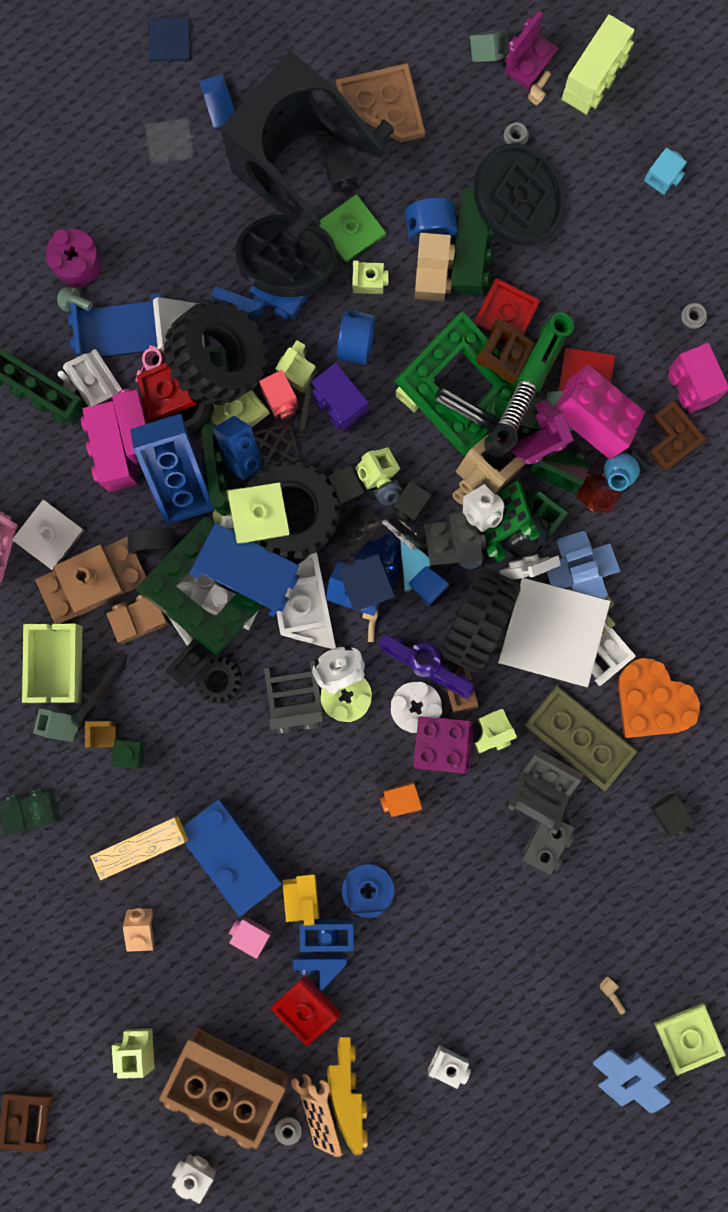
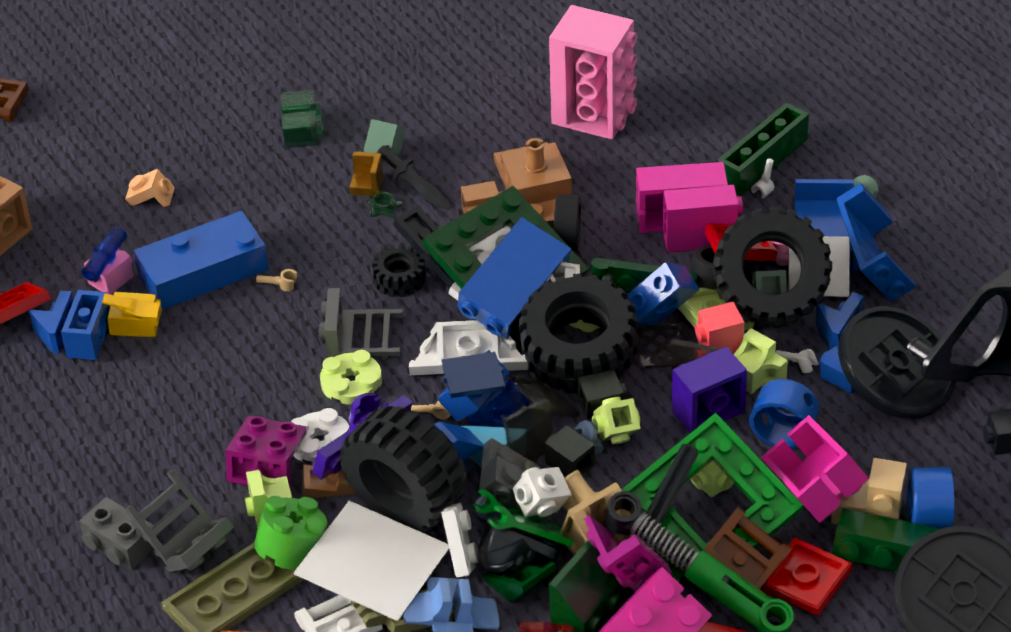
camera: 95 degrees right, 40 degrees down
(48, 535) = (596, 158): white plate -> none
(52, 663) = (451, 140): yellowish green piece -> none
(66, 246) = (911, 191): magenta brick -> none
(92, 378) = (768, 191): white plate -> none
(123, 298) = (863, 219): none -> blue panel
(126, 706) = (384, 204): none -> clear green plate
(128, 754) = (338, 192): dark green brick -> none
(134, 1055) = (24, 169): yellowish green brick -> none
(139, 848) = (234, 188): yellow tile -> none
(172, 468) = (644, 218): blue brick -> none
(237, 785) = (286, 279): none -> tan hand
(251, 941) = (104, 254): none -> clear blue pin
(258, 513) = (573, 280): yellowish green plate -> none
(278, 337) = (804, 358): none -> white hand
(350, 669) = (381, 362): white plate -> none
(352, 229) = (934, 439): bright green plate -> none
(358, 901) = (134, 382): blue plate -> none
(367, 285) = (865, 440): yellowish green brick -> none
(401, 800) = (215, 407): orange slope -> none
(423, 305) = (822, 476): none -> dark pink piece
(525, 691) = (289, 530): none -> bright green brick

